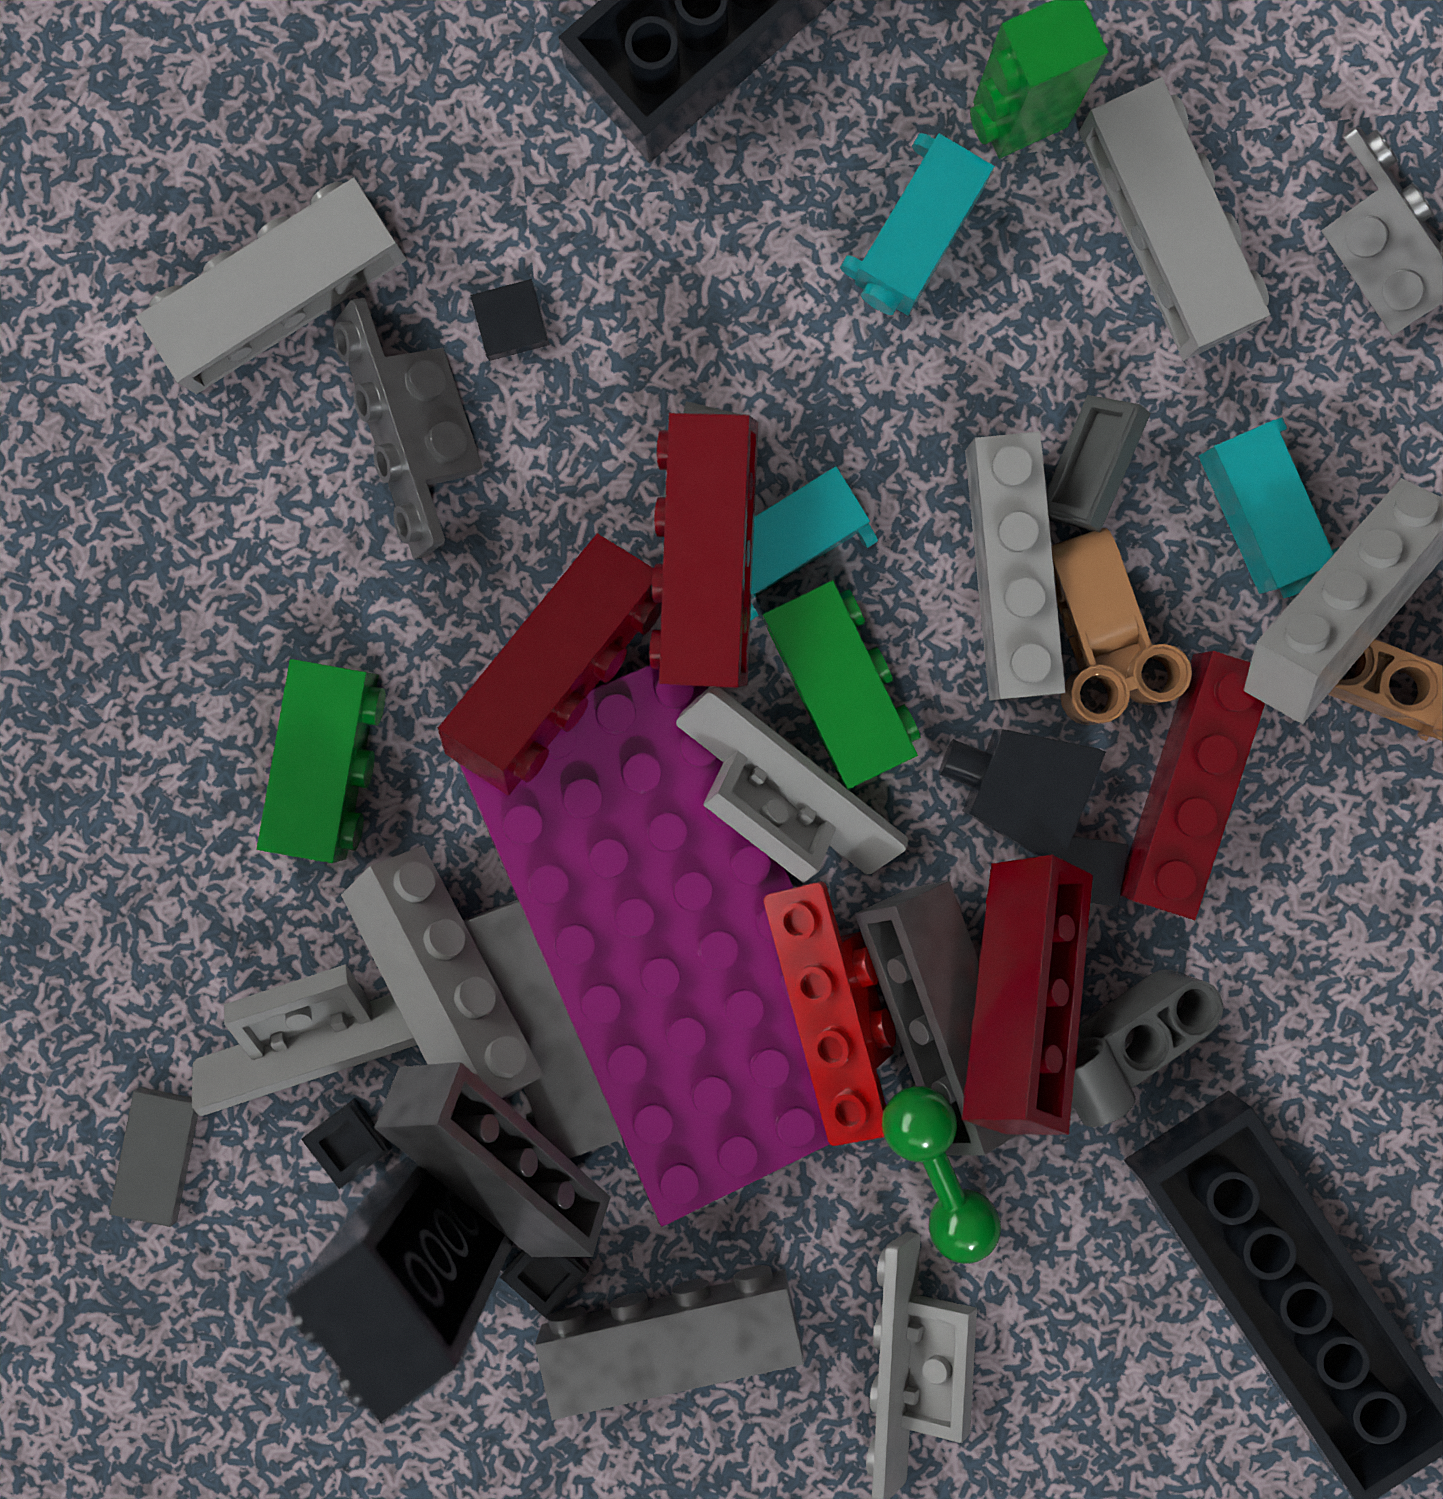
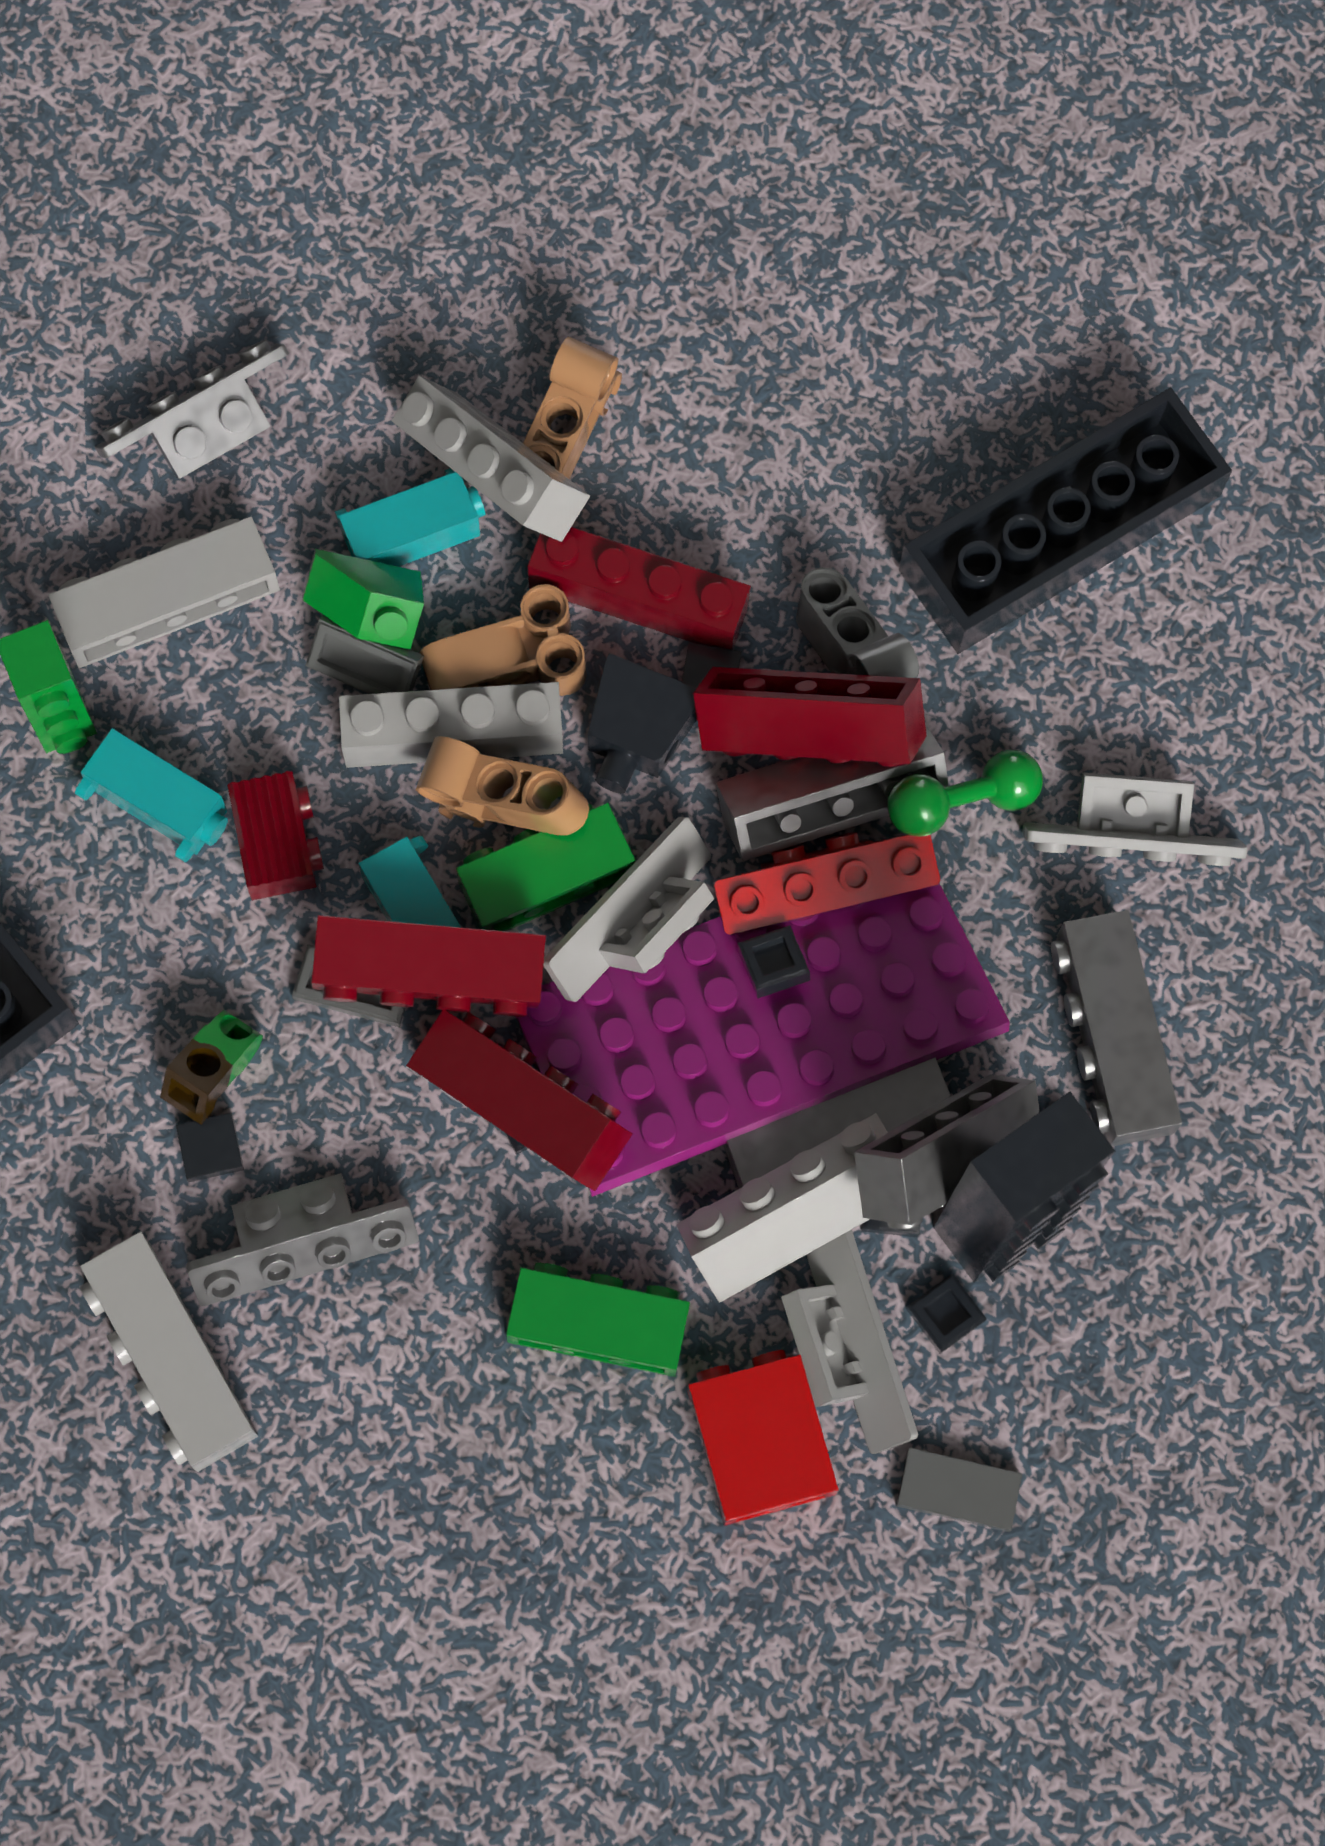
camera: 90 degrees left, 15 degrees down
(195, 944) = (762, 1437): none -> red panel
(598, 312) = (209, 1065): none -> dark brown leg
(728, 953) = (773, 961): none -> black tile
(875, 368) = (273, 835): none -> dark red brick
(933, 600) = (473, 786): none -> medium nougat piece
(1169, 459) = (366, 597): none -> green slope

